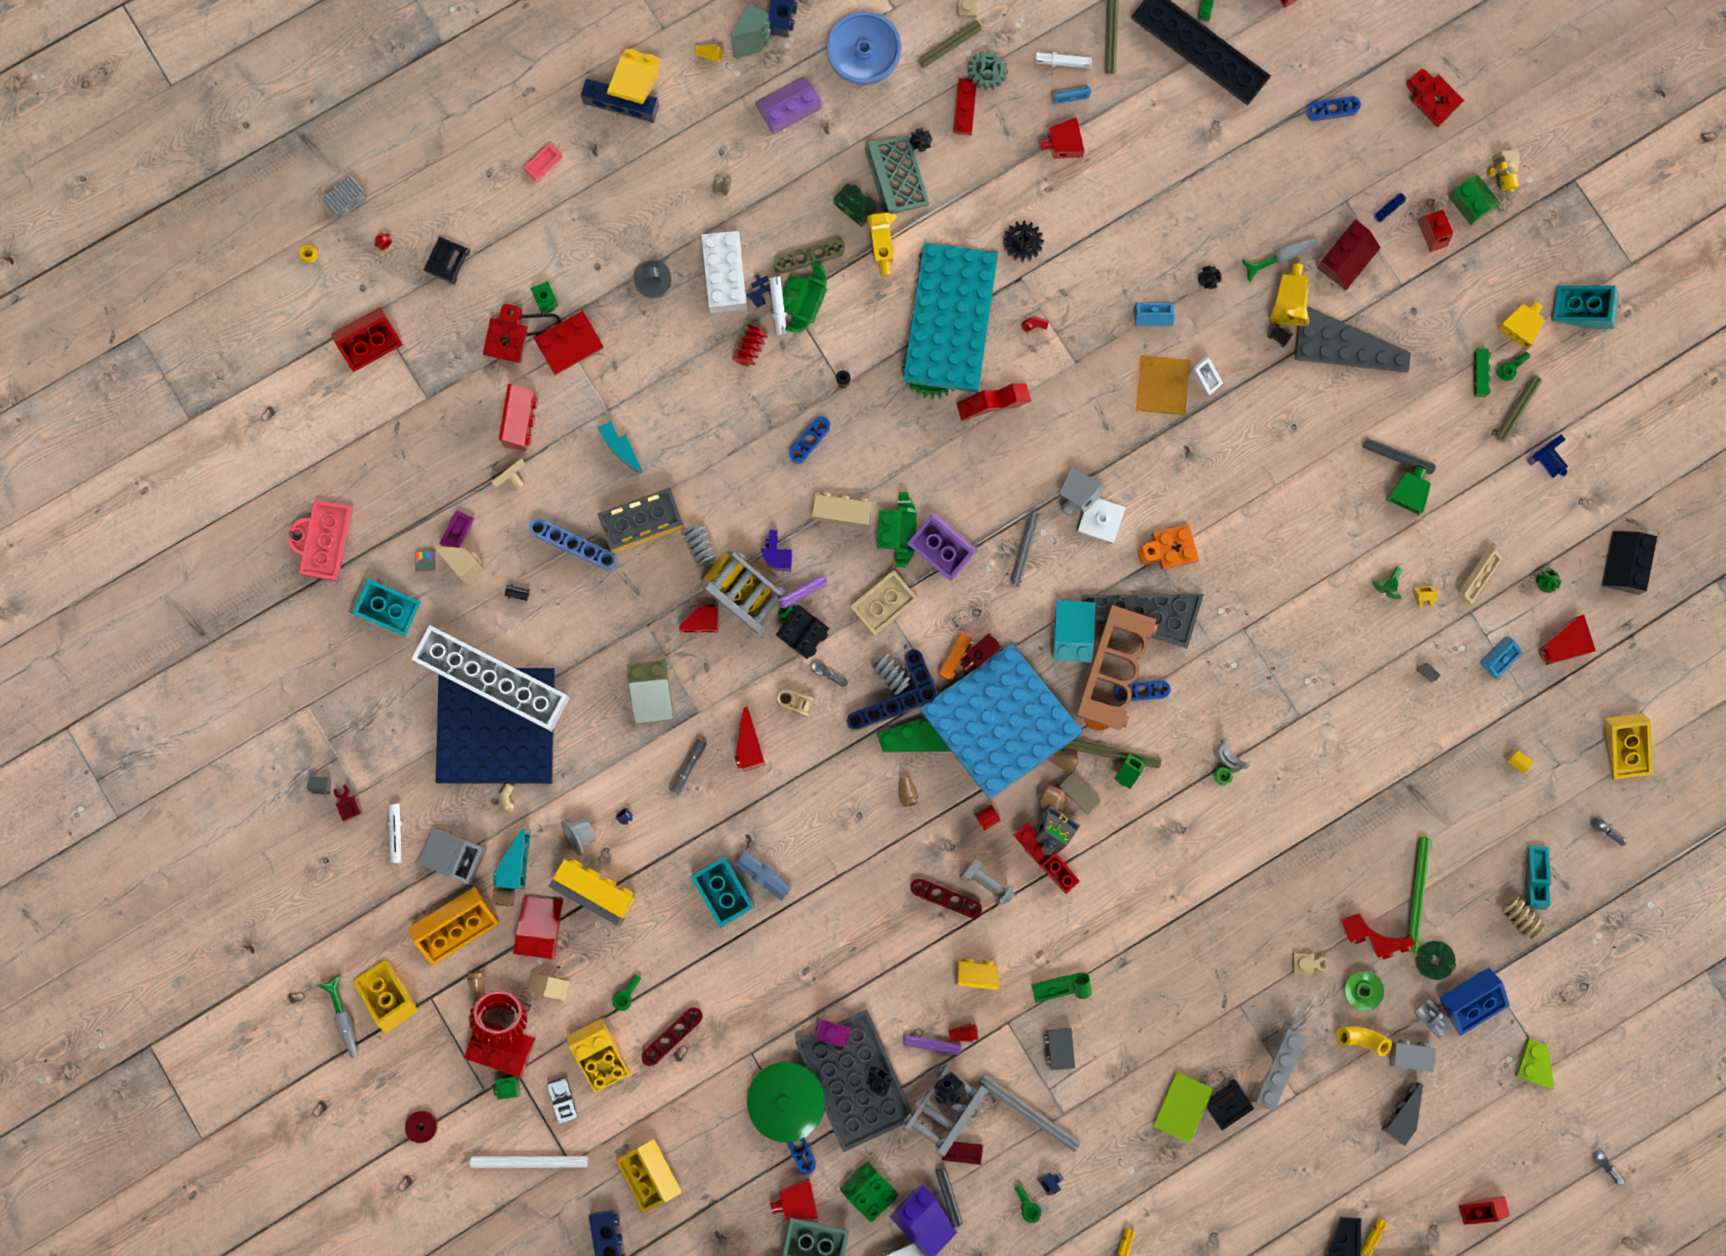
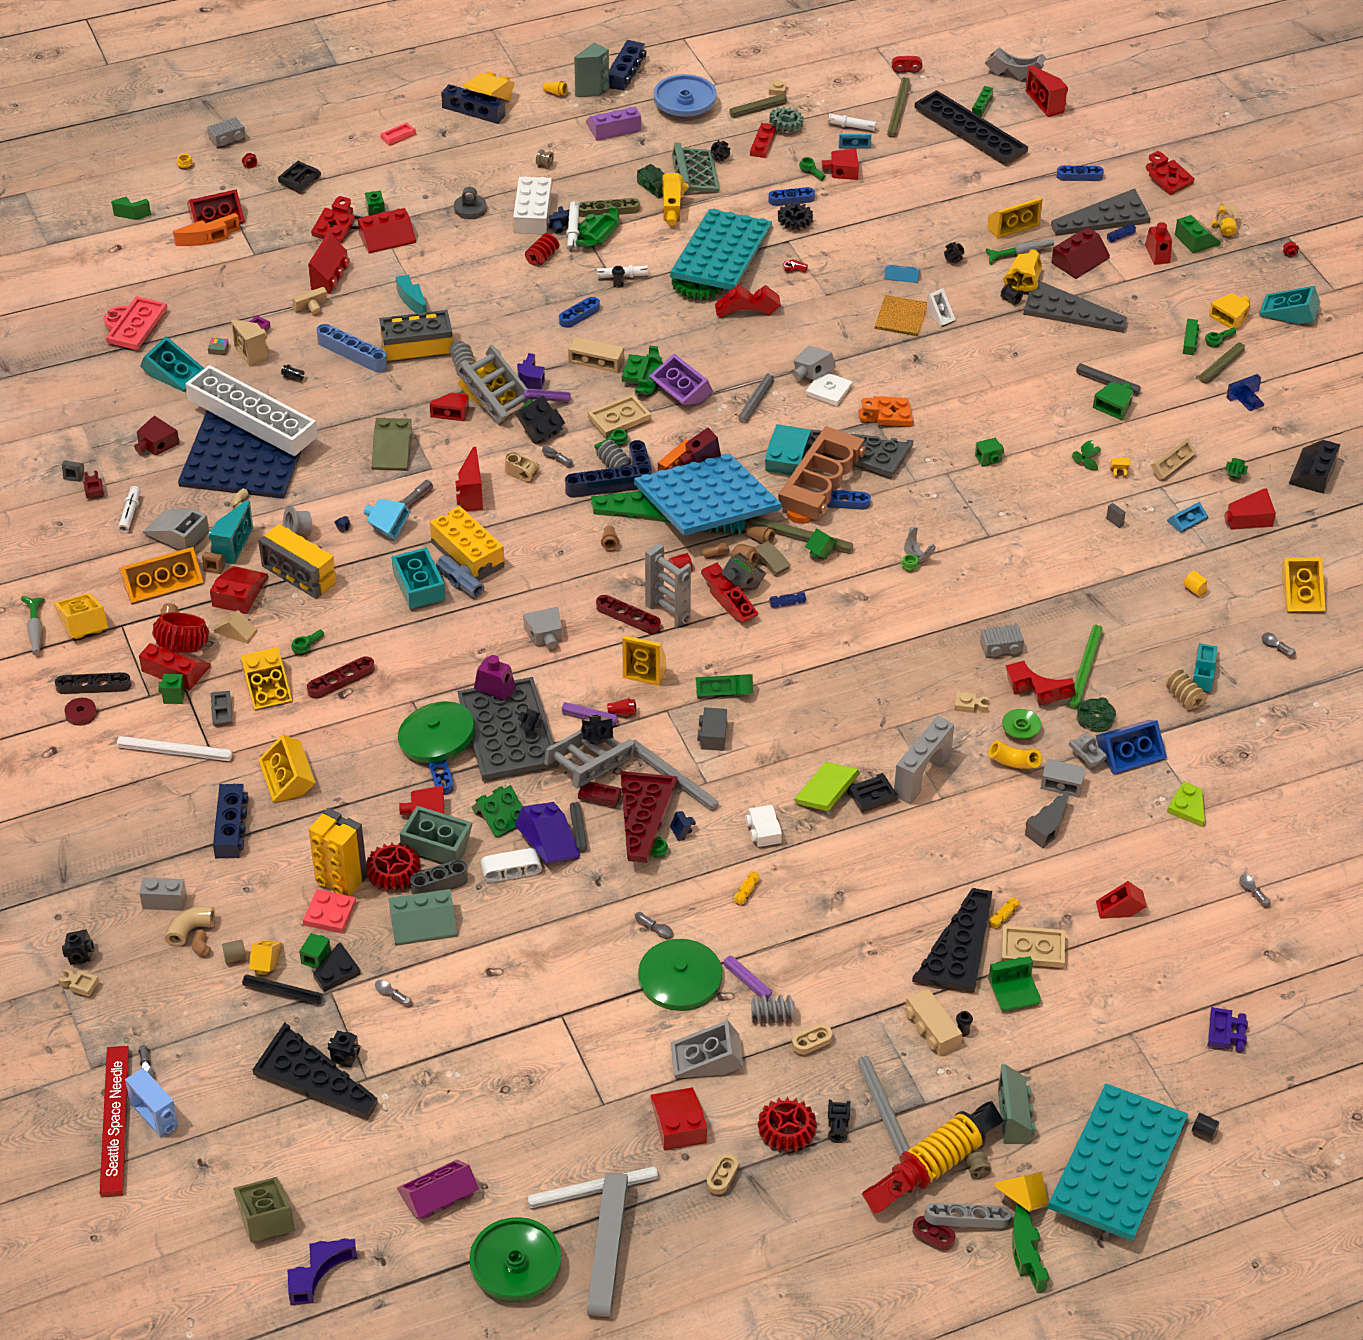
camera: 10 degrees right, 35 degrees down
(260, 350) = (124, 208): none -> green slope
(359, 381) = (206, 233): none -> orange slope
(394, 721) = (156, 437): none -> dark red torso
(423, 1087) = (93, 680): none -> black beam
(670, 808) = (387, 517): none -> medium azure torso
(763, 834) = (467, 543): none -> yellow piece
(849, 366) = (629, 271): none -> white pin
(866, 937) = (544, 627): none -> light grey torso
(888, 637) = (619, 436): none -> green plate
(1009, 210) = (802, 195): none -> blue beam
(1011, 1164) = (644, 808): none -> dark red wing
(1021, 793) = (718, 550): none -> medium nougat arm
(1023, 145) = (807, 164): none -> green plate
(1105, 850) = (787, 599): none -> clear blue axle
(1130, 1169) = (764, 826): none -> white brick
(1270, 206) = (1015, 218): none -> yellow slope
(1286, 597) = (989, 451): none -> green brick
(1331, 877) = (1001, 641): none -> light grey brick
(1377, 173) = (1107, 214): none -> dark grey wing
(1580, 207) = (1290, 249): none -> red plate

